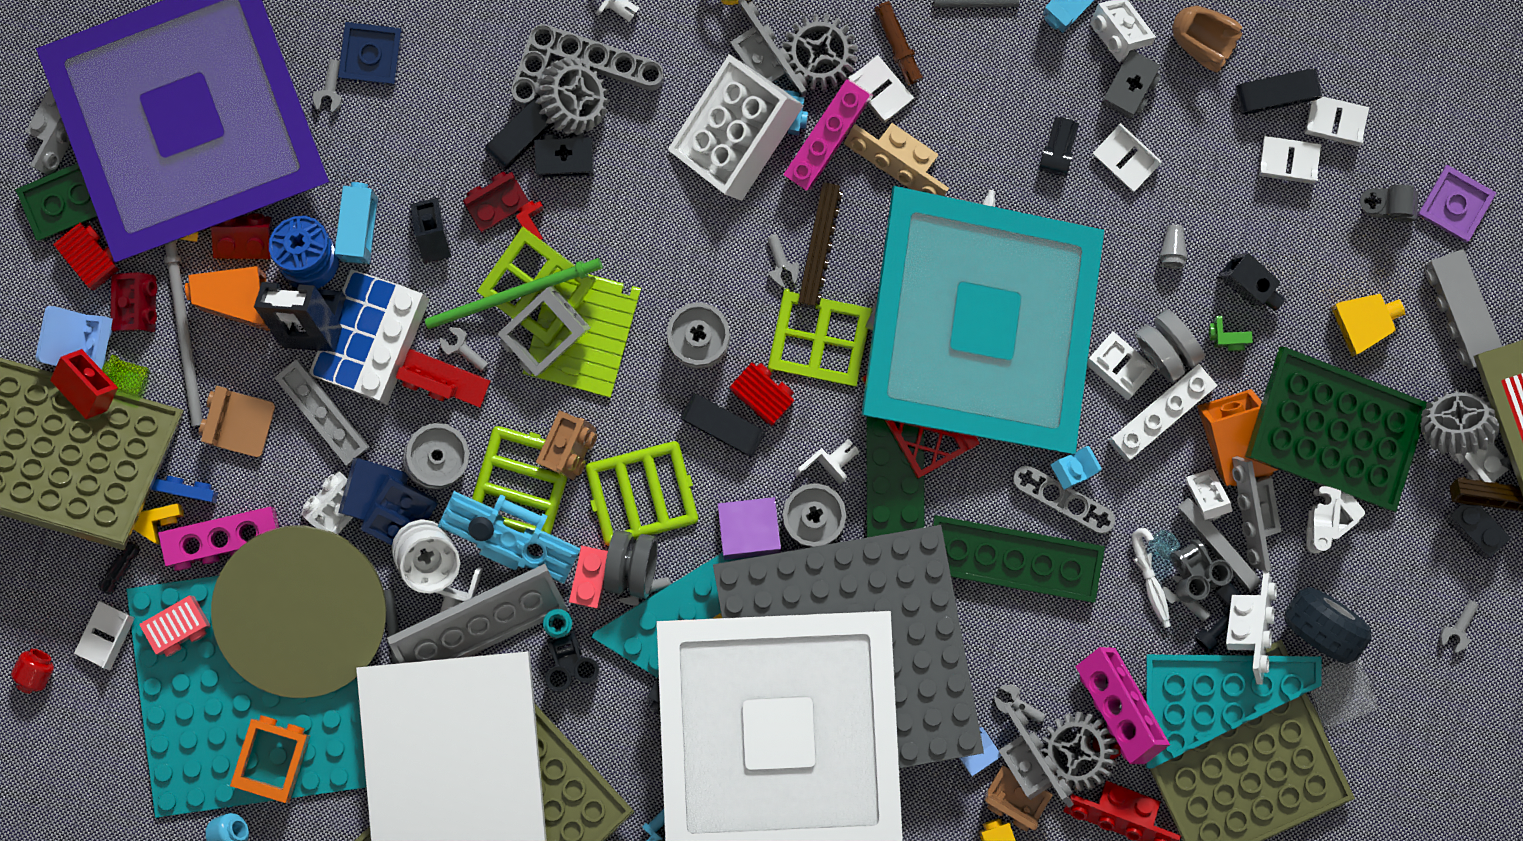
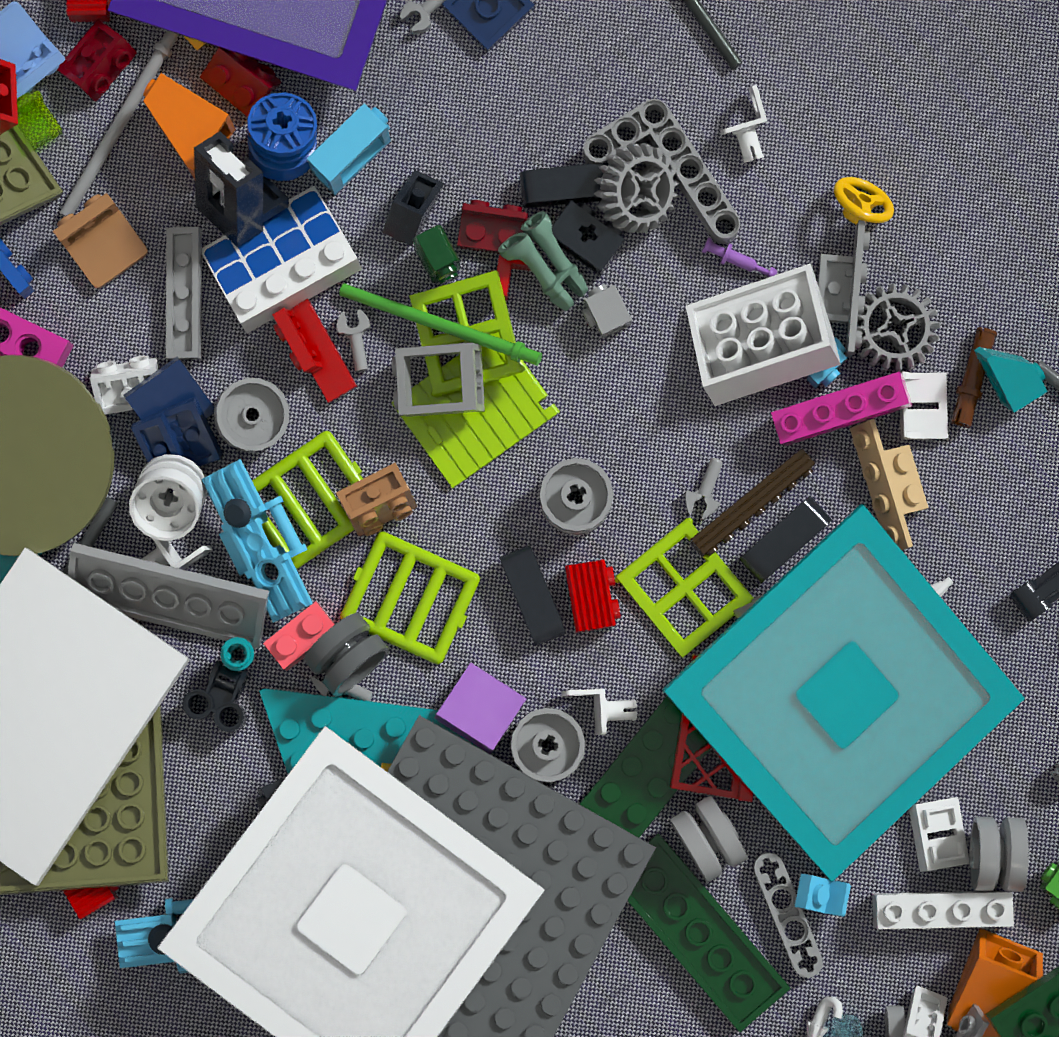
camera: 40 degrees right, 0 degrees up
(474, 249) = (437, 255): none -> dark green brick
(526, 197) = (522, 248): none -> sand green piece
(617, 195) = (606, 311): none -> light grey brick
(675, 90) = (736, 258): none -> medium lavender piece
(861, 252) = (785, 539): none -> black beam
(924, 22) = (1012, 377): none -> teal slope
(972, 486) = (706, 840): none -> light grey wheel

